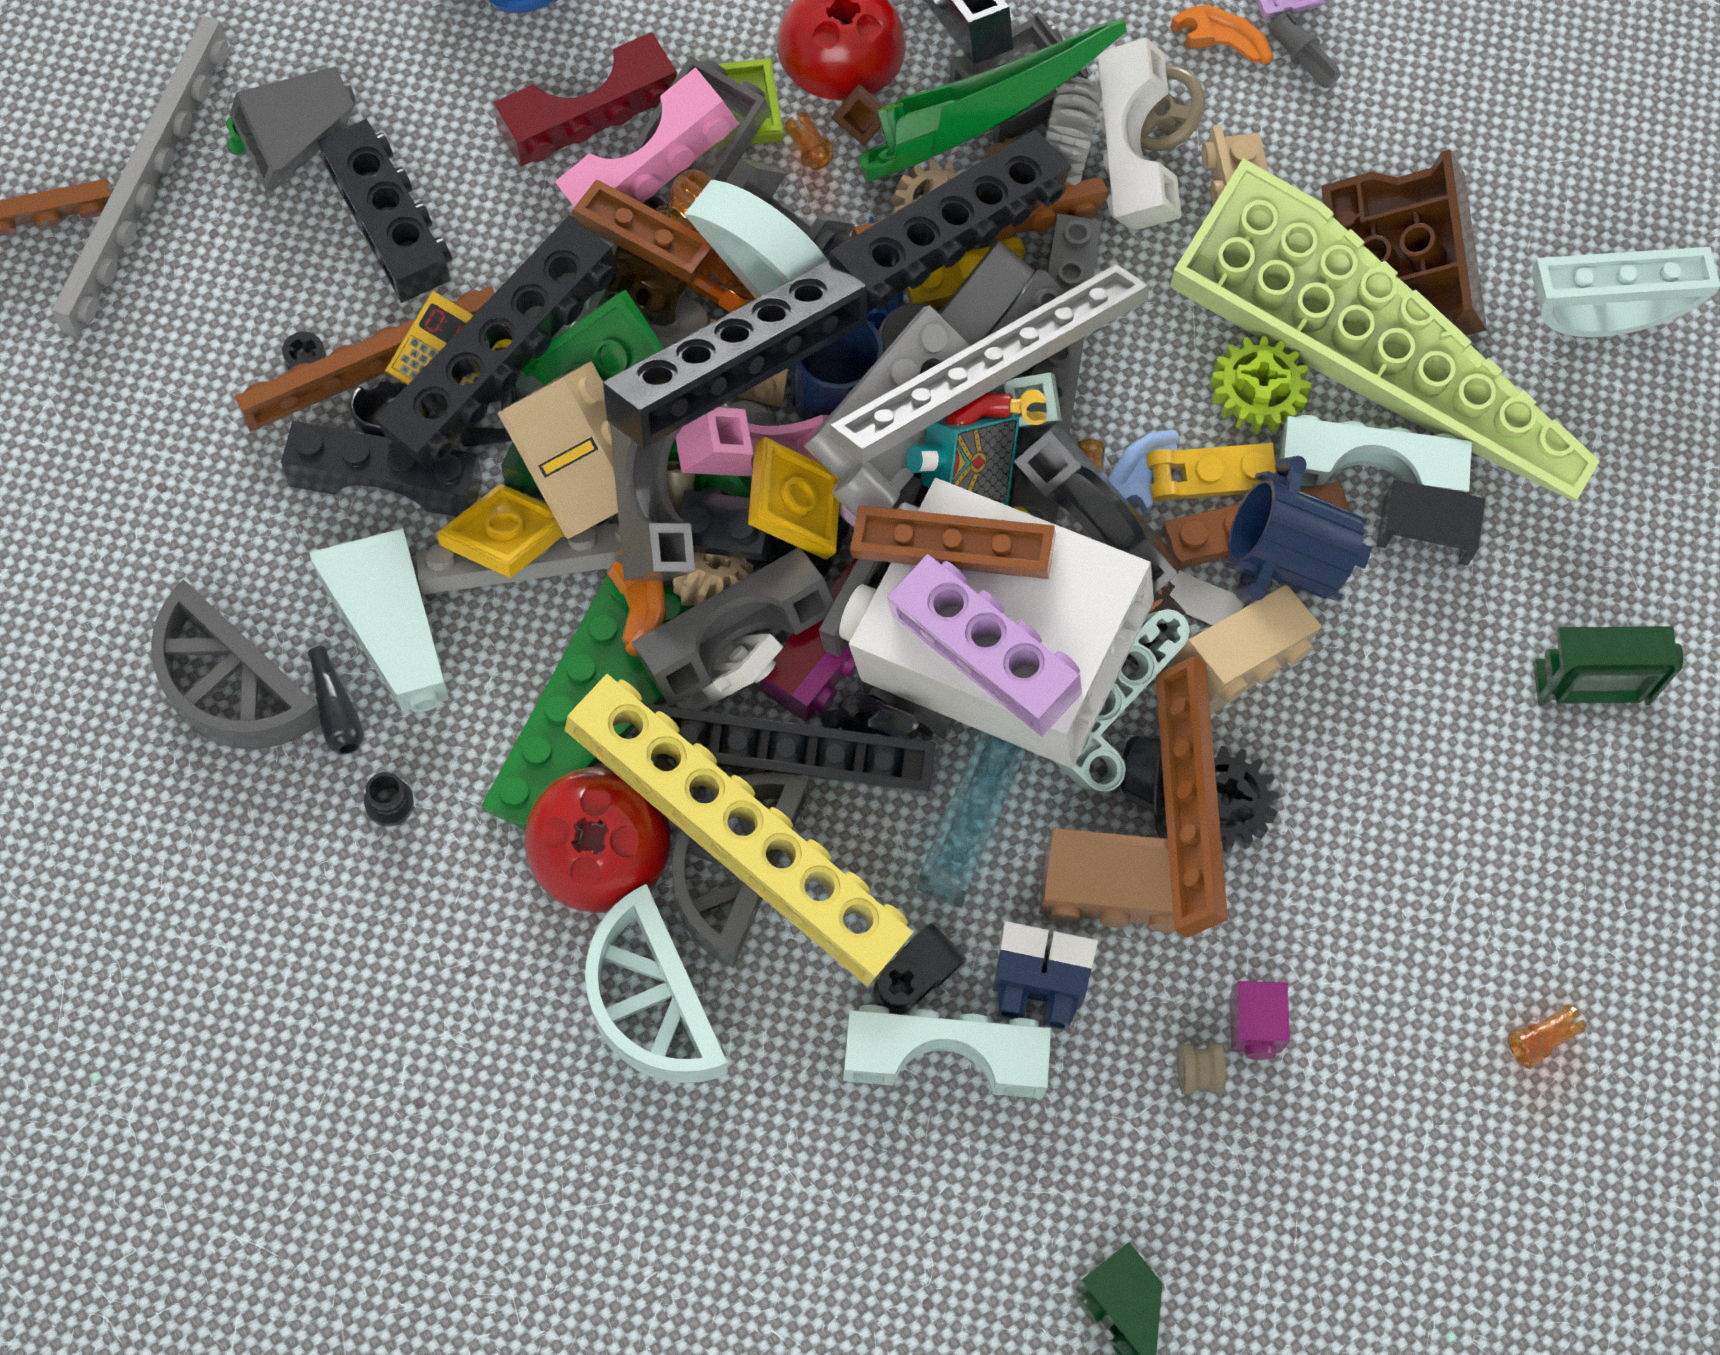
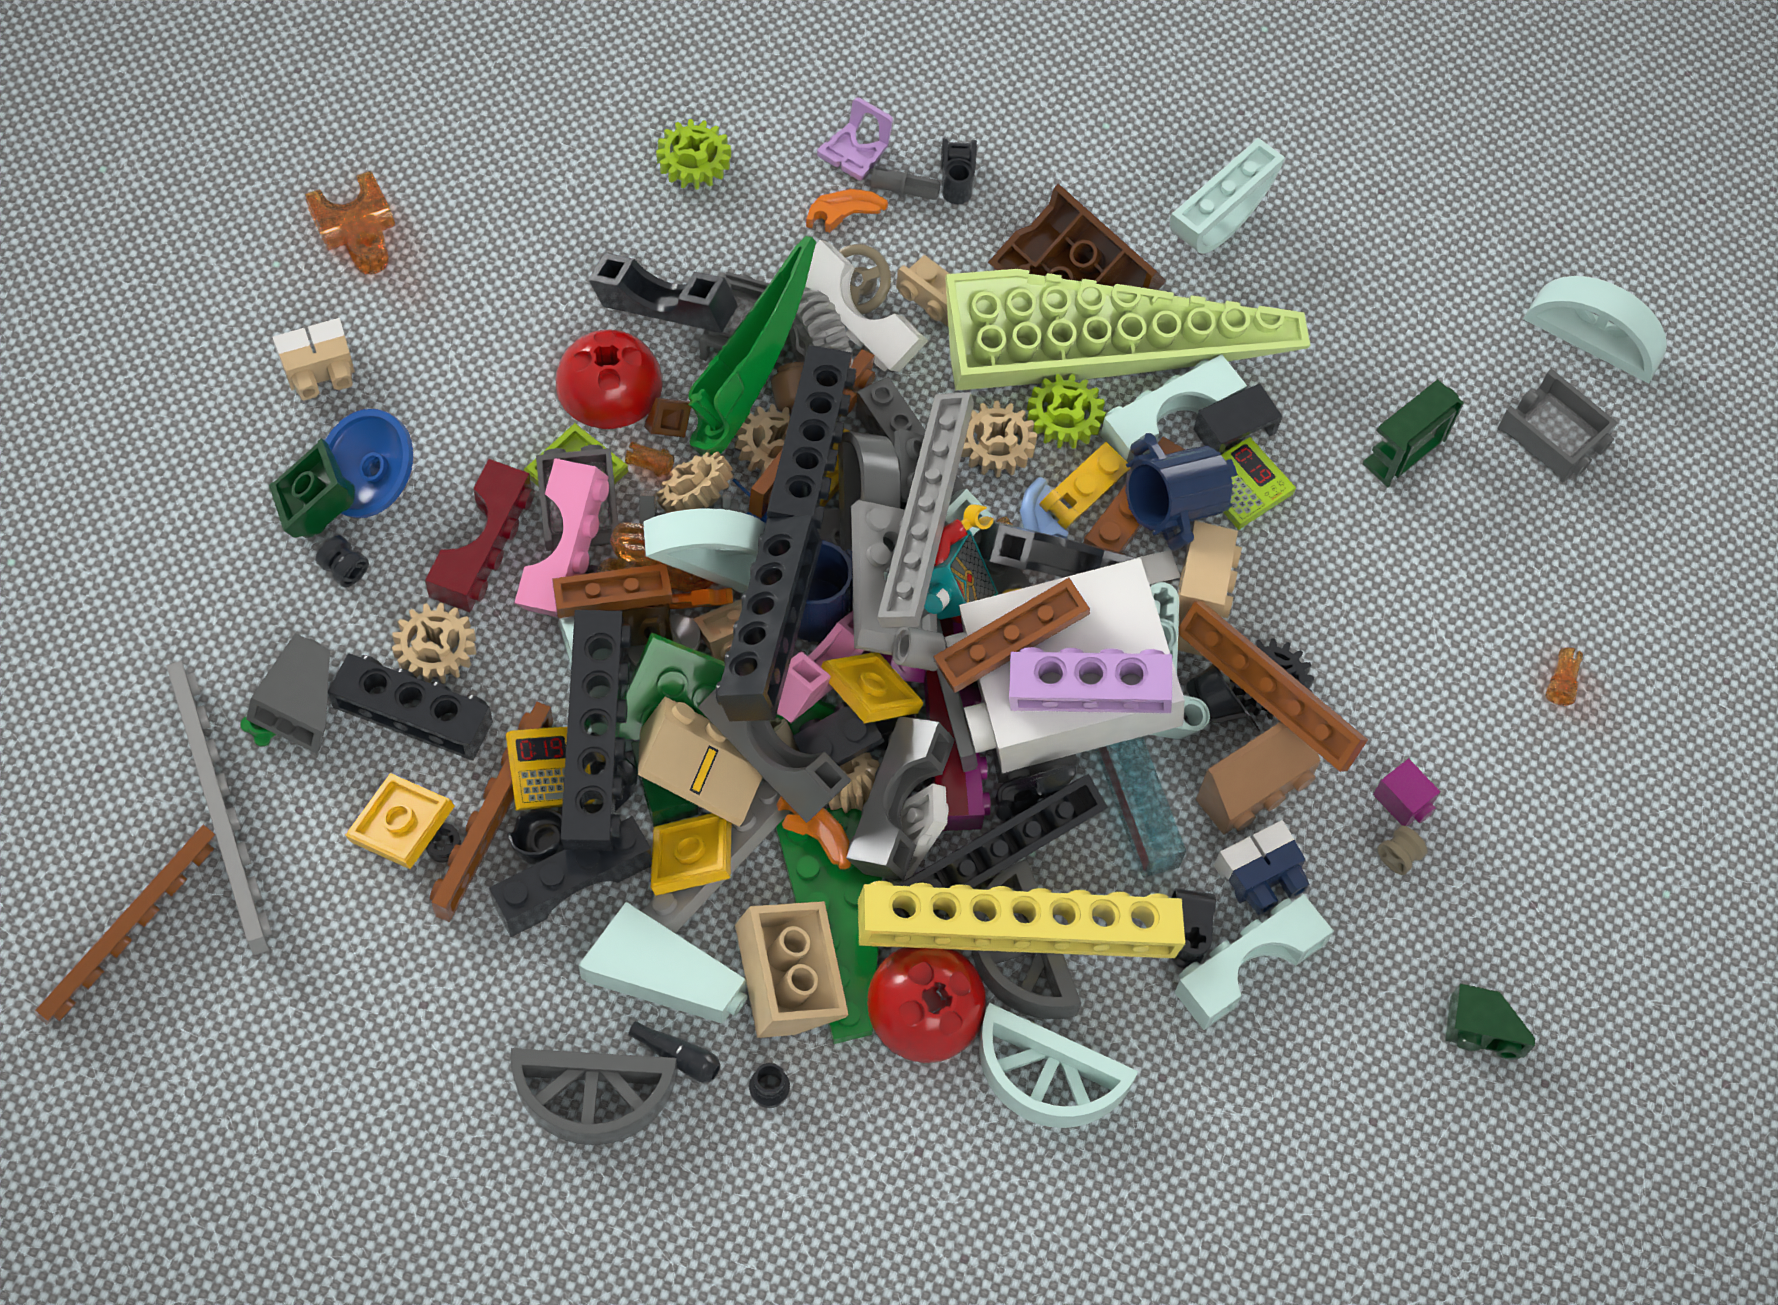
camera: 40 degrees left, 5 degrees down
(282, 306) = (400, 820): none -> yellow tile
(444, 39) = (340, 559): none -> black wheel
(474, 176) = (443, 630): none -> tan gear
(498, 707) = (790, 968): none -> tan slope
(821, 191) = (695, 483): none -> tan gear
(1159, 365) = (997, 439): none -> tan gear
(1373, 73) = (958, 170): none -> black piece
(1390, 594) = (1258, 483): none -> lime tile

